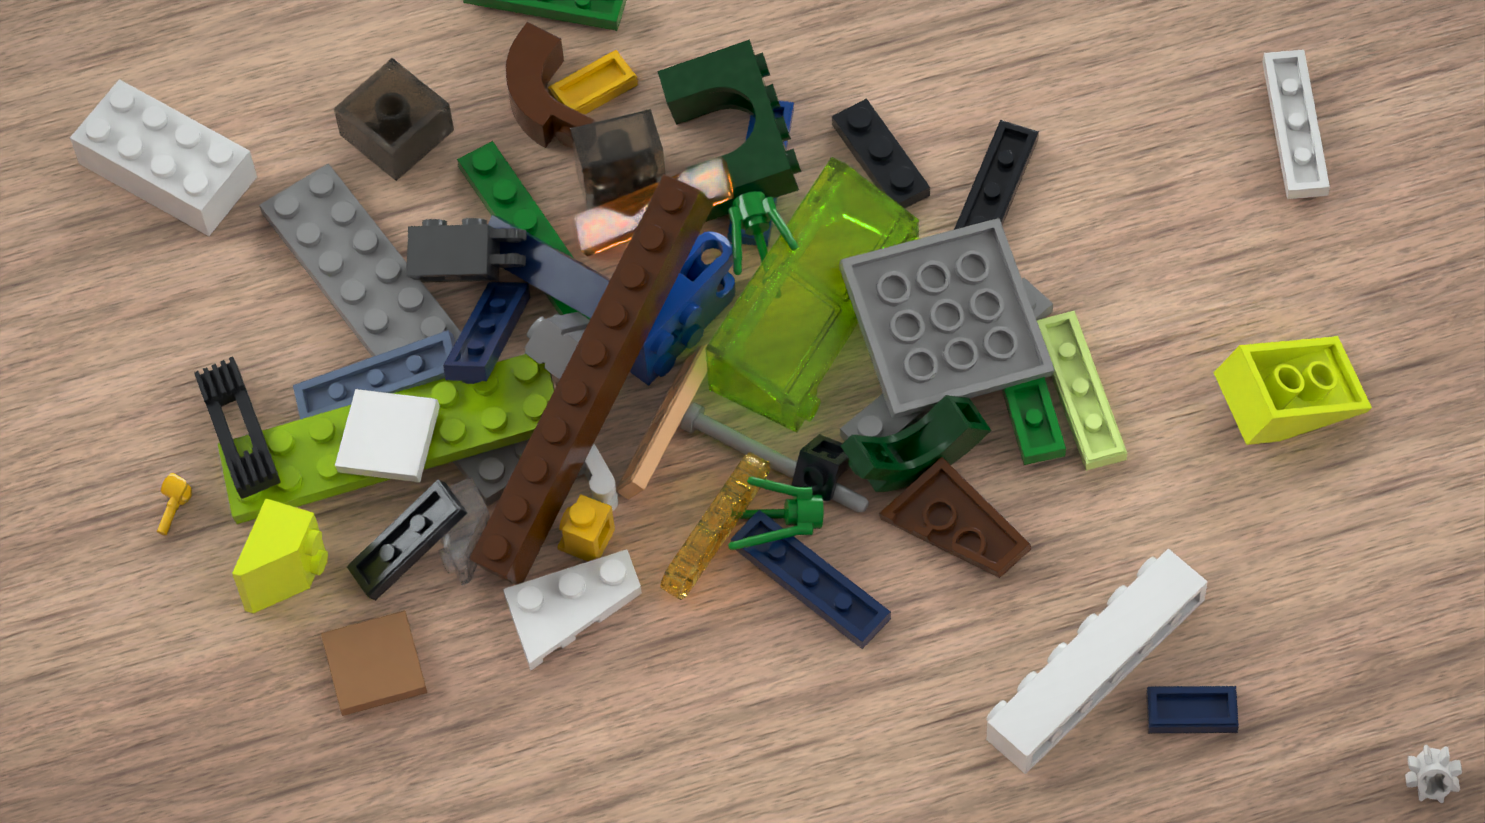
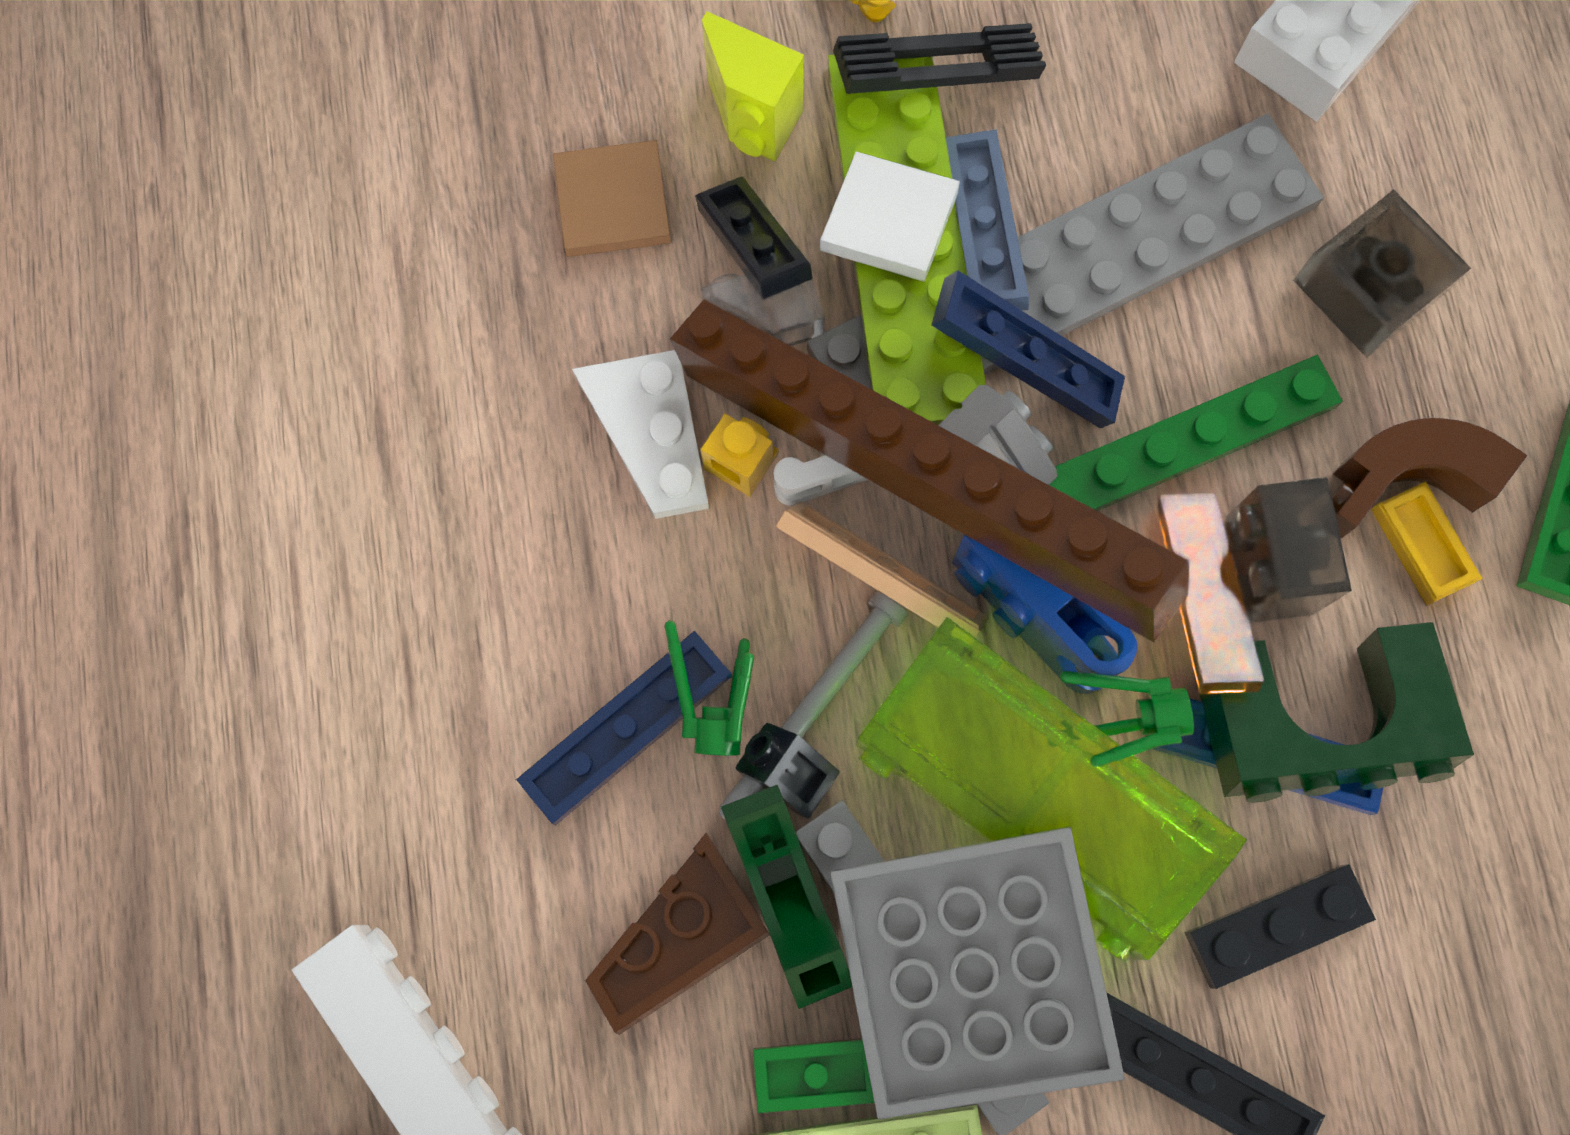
camera: 95 degrees right, 15 degrees up
(460, 251) = (1163, 334): dark grey hinge -> none
(555, 271) = (1132, 435): dark blue tile -> none
(714, 527) = (718, 614): clear yellow beam -> none

